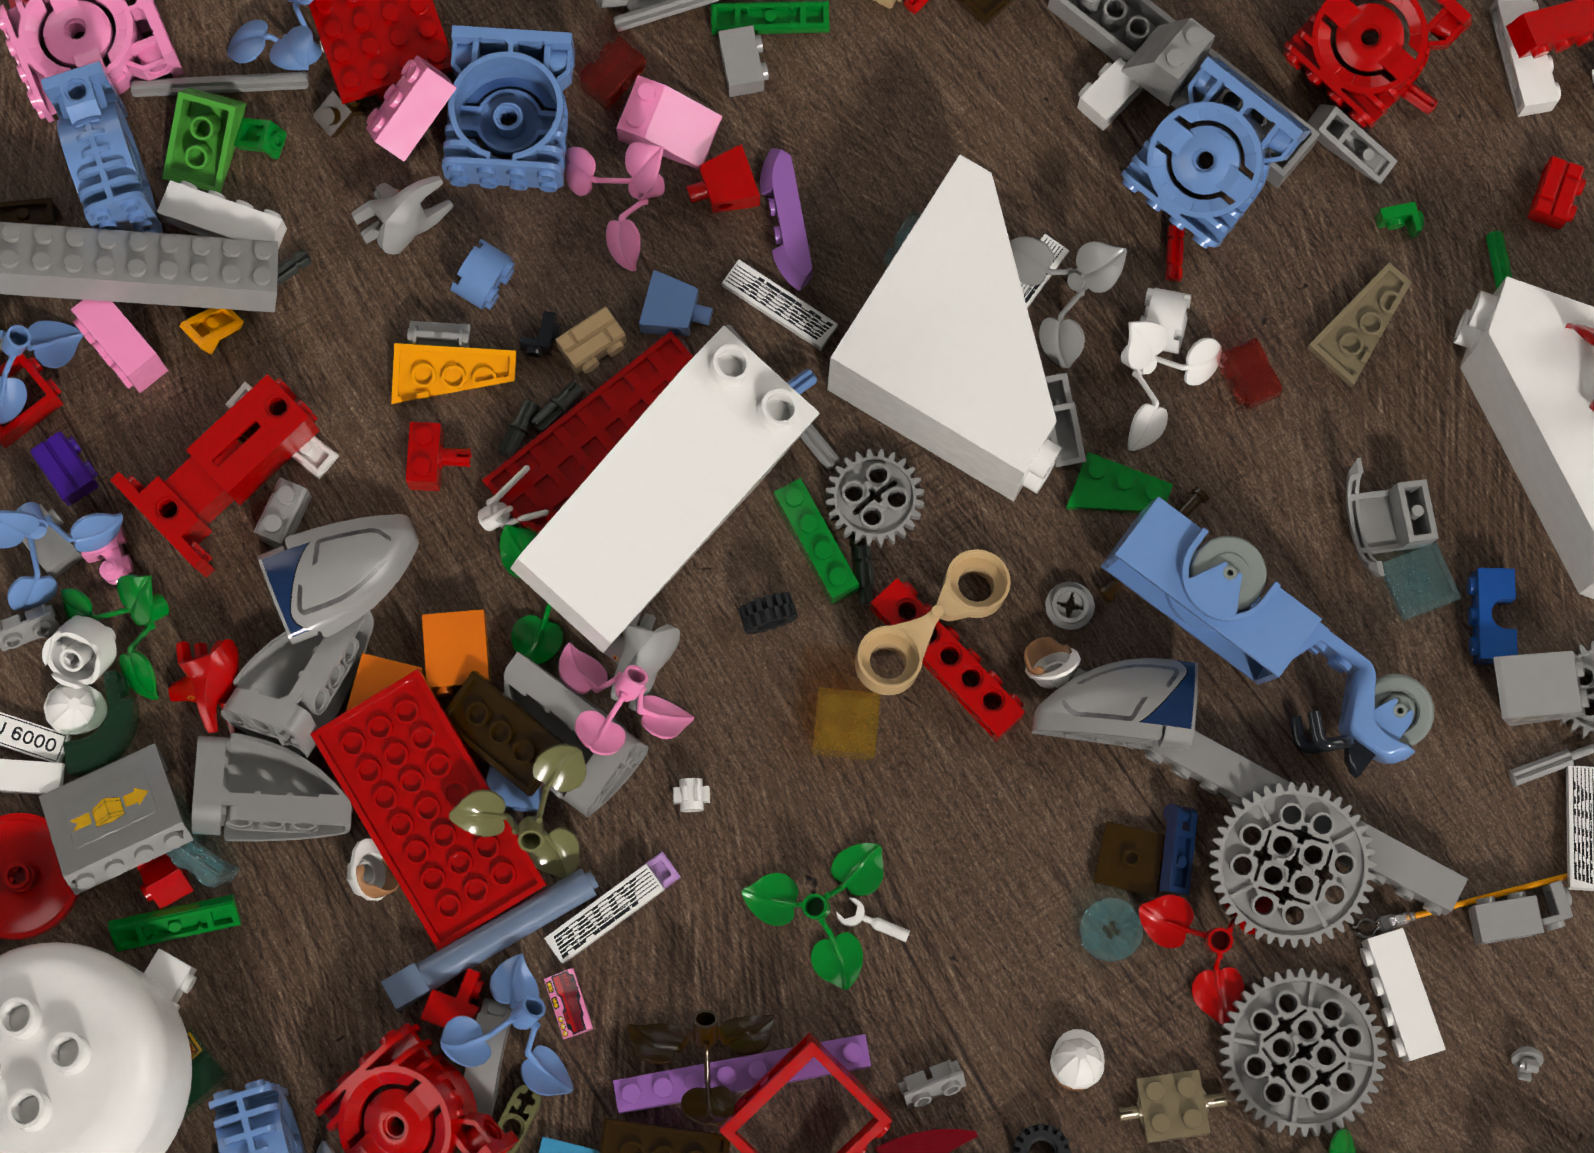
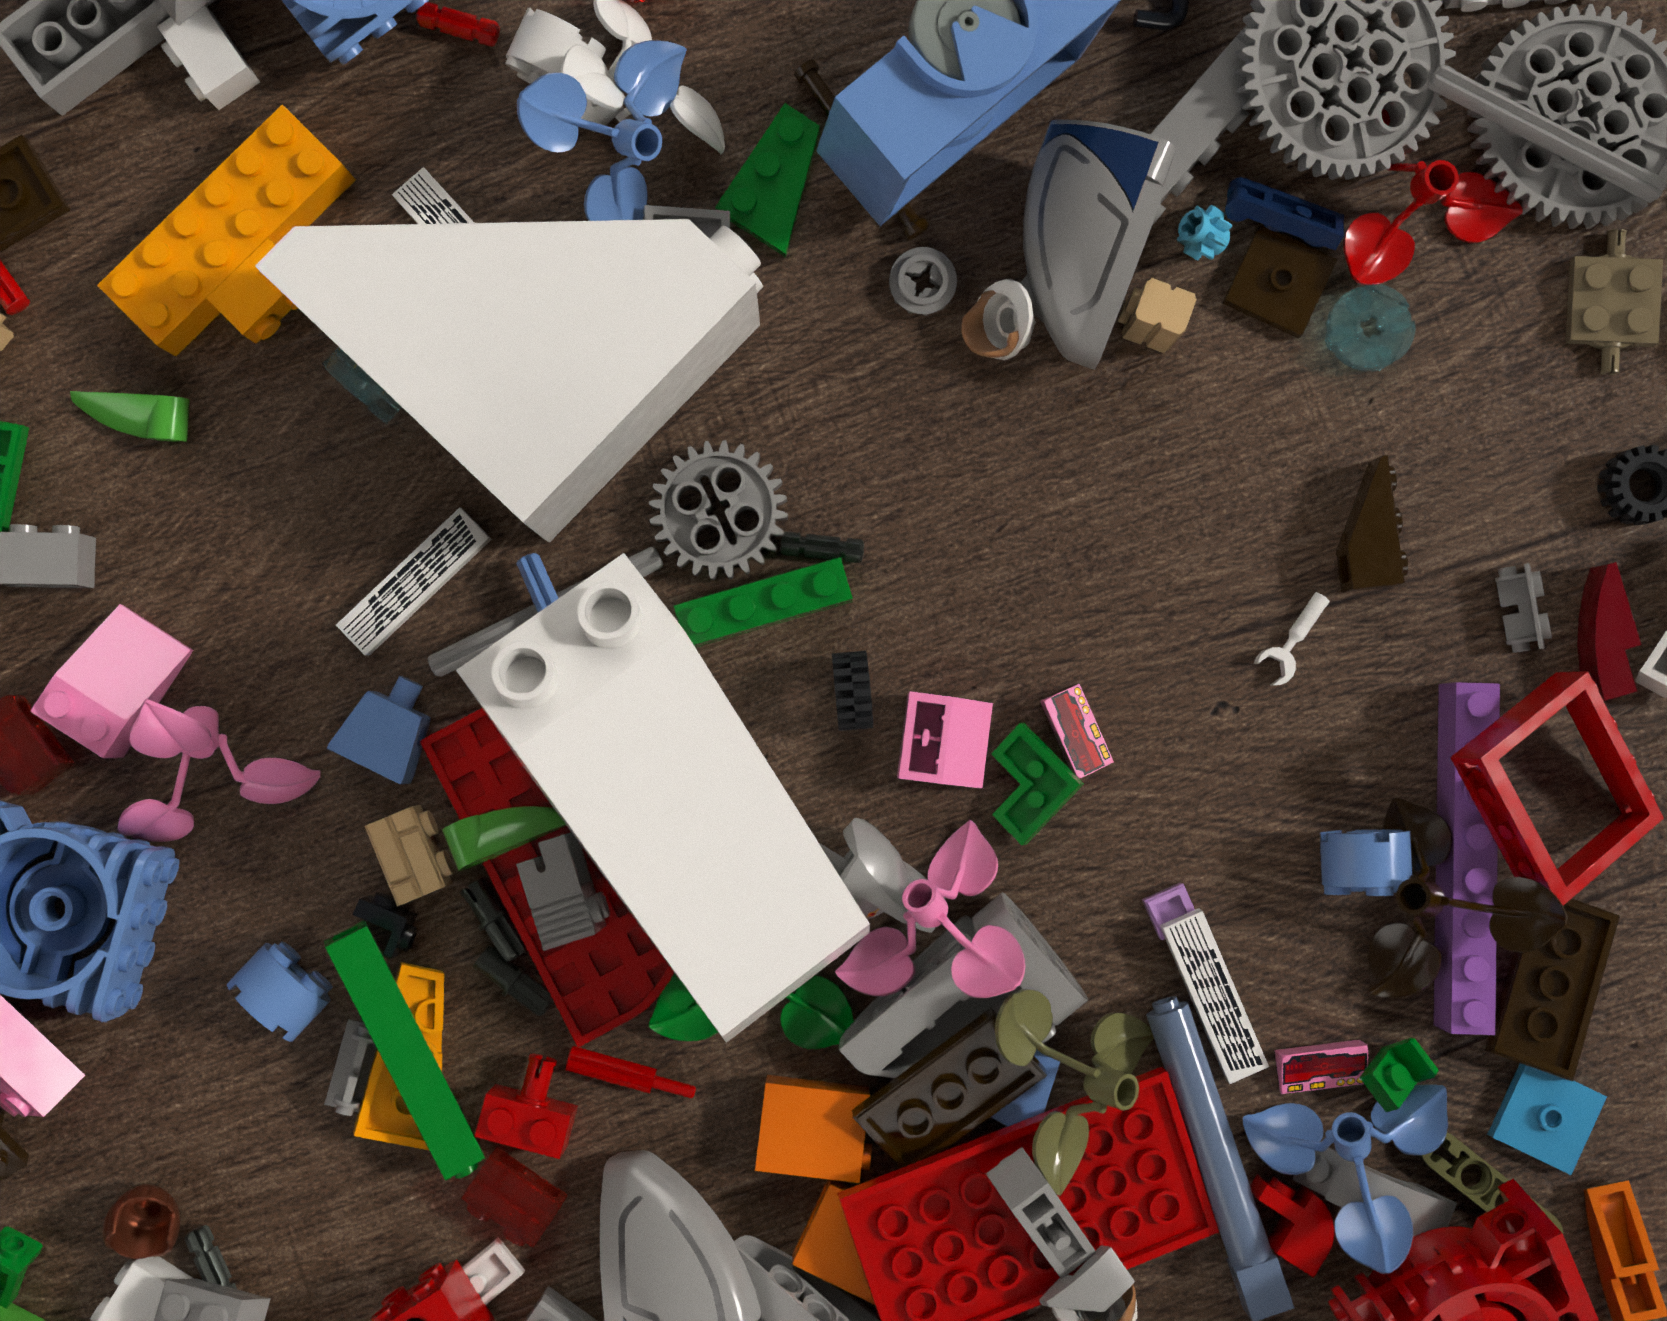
camera: 75 degrees left, 10 degrees up
(308, 219) = (142, 1223): none -> copper hair
(370, 459) = (513, 1198): none -> clear red brick
(387, 860) = (1093, 1286): none -> light grey slope
(400, 214) = (164, 1090): light grey piece -> none
(431, 810) = (1041, 1212): none -> light grey slope
(458, 364) = (404, 1051): none -> green brick
(469, 516) = (623, 1073): none -> red axle
(497, 513) = (630, 1035): white plant -> none
(575, 1055) = (1396, 1072): none -> green bracket
(586, 442) = (562, 893): none -> light grey piece
(617, 392) = (498, 832): none -> bright green piece
(691, 795) = (1079, 847): white gear -> none
(724, 994) = (1365, 861): none -> medium blue brick
(726, 182) = (219, 618): red torso -> none
(730, 760) = (1043, 781): none -> green plate
(747, 685) = (944, 740): none -> bright pink slope
(773, 779) = (1076, 731): none -> slope
(775, 896) = (1332, 702): green plant -> none
(779, 182) = (237, 543): medium lavender brick -> none
(846, 723) = (1025, 616): clear yellow brick -> none
(853, 100) = (138, 414): none -> bright green piece
(912, 637) = (933, 497): tan piece -> none
(945, 151) = (251, 299): none -> light orange brick
(954, 958) = (1370, 542): none -> dark brown slope
(992, 132) = (258, 193): none -> light orange brick
(995, 721) = (1063, 413): red brick -> none
(1077, 1060) = (1531, 410): white piece -> none
(1080, 769) = (1156, 314): none -> tan brick
(1097, 270) = (461, 119): light grey plant -> none
(1115, 322) = (553, 111): none -> medium blue plant
(1150, 794) = (1204, 232): none -> medium azure gear
(1276, 1020) = (1547, 133): none -> light grey axle

